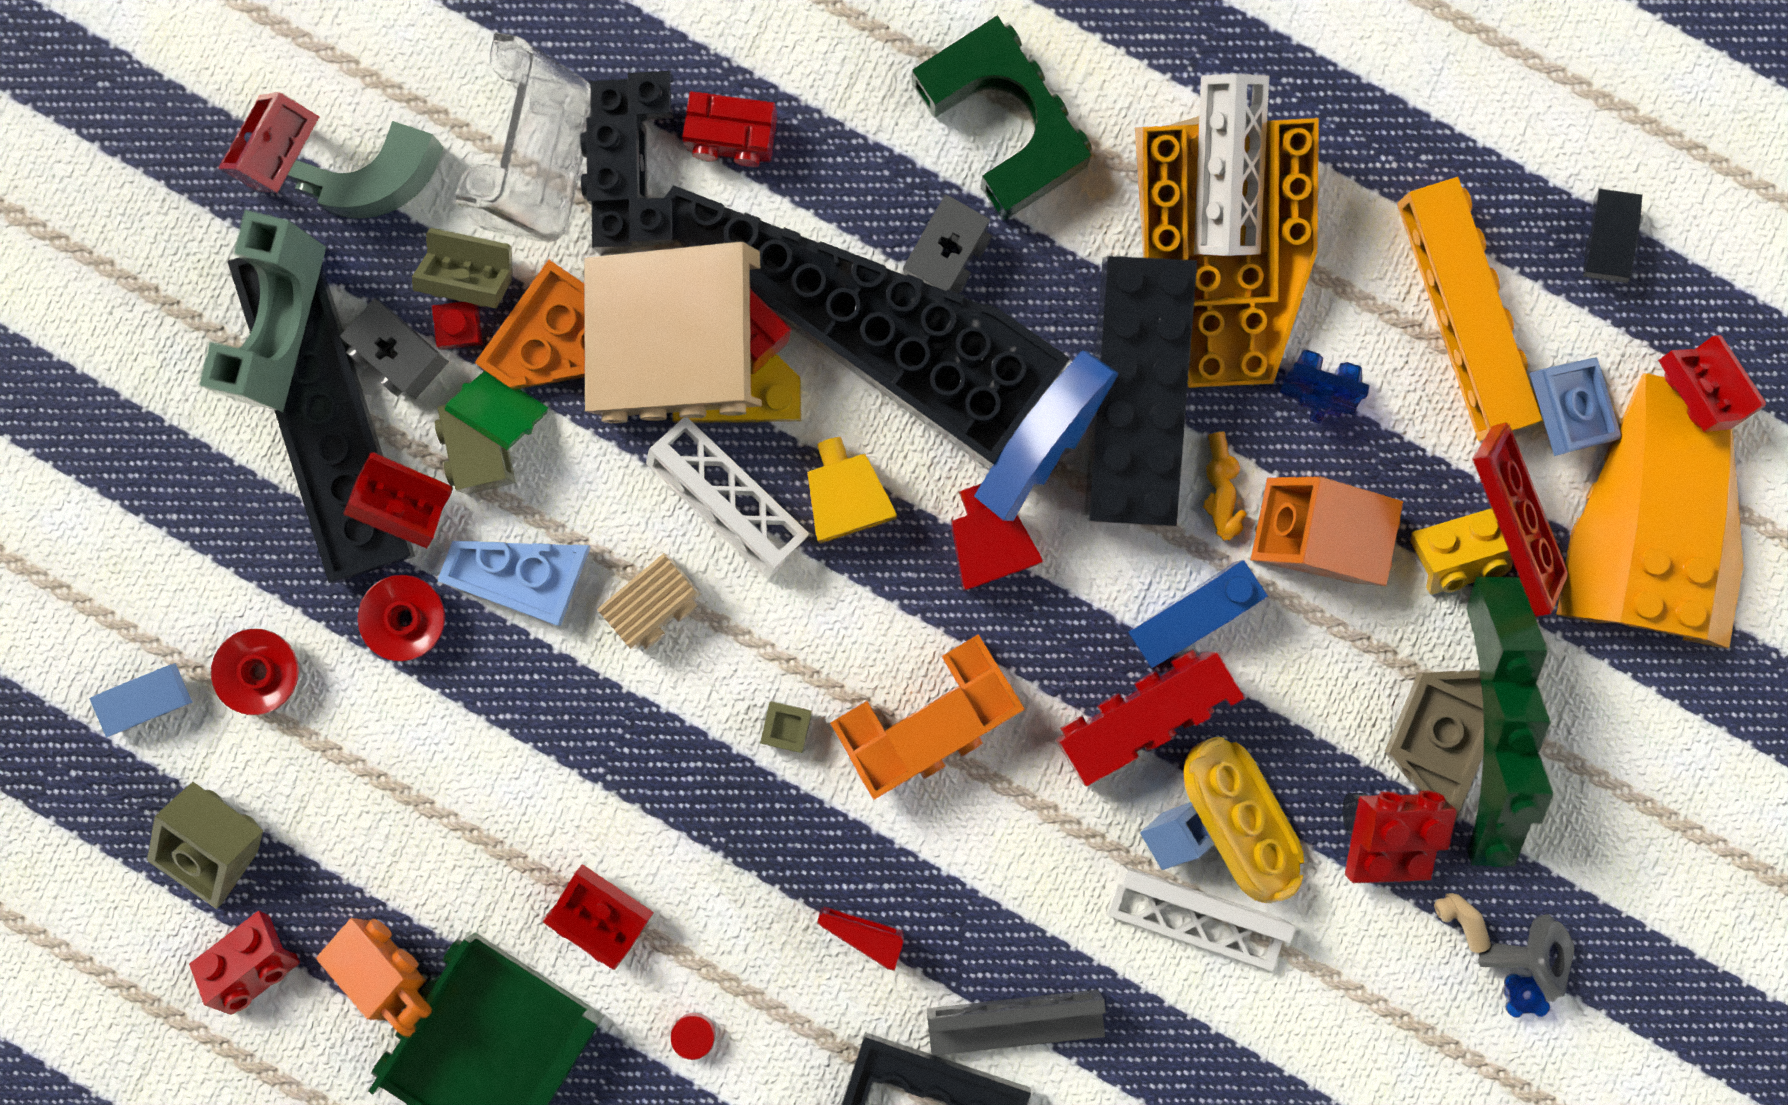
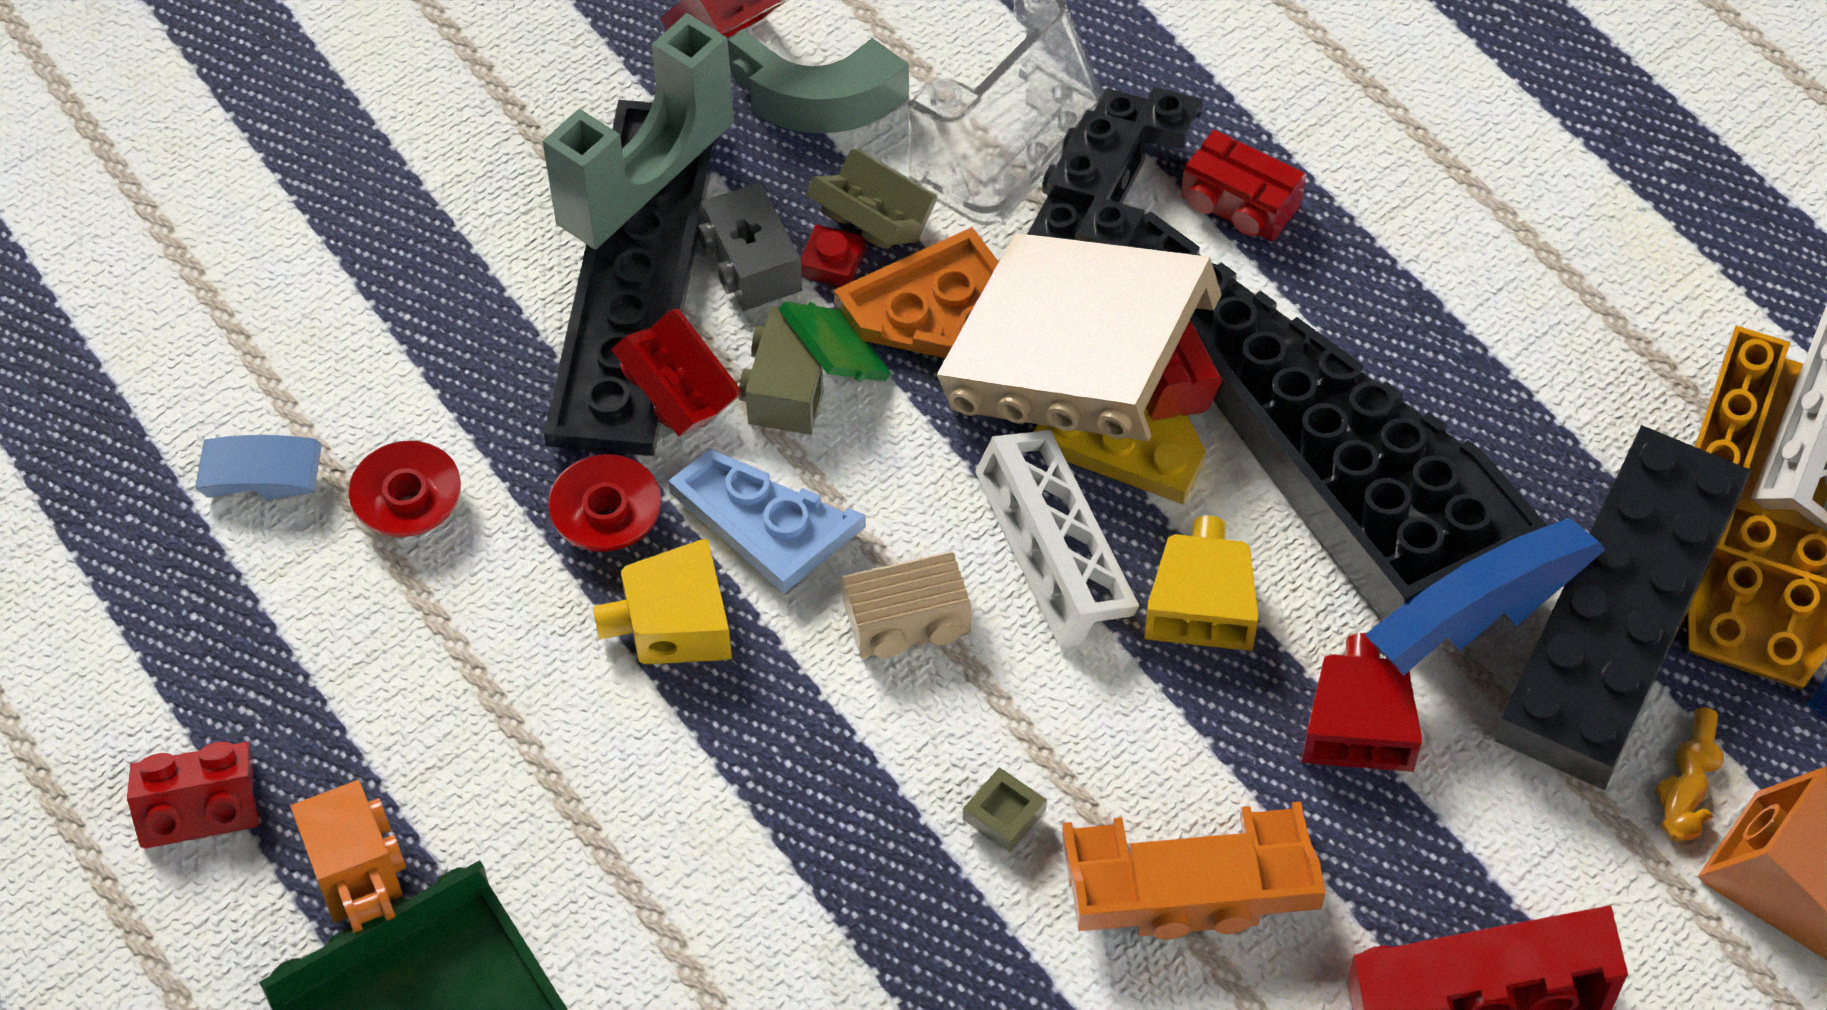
camera: 20 degrees right, 30 degrees down
(203, 843) = (231, 639): olive slope -> none
(489, 679) = (670, 608): none -> yellow torso
(598, 917) = (657, 921): red bracket -> none
(949, 224) = (1453, 380): dark grey brick -> none
(993, 61) = (1581, 235): dark green arch -> none
(1198, 613) = (1645, 884): blue slope -> none

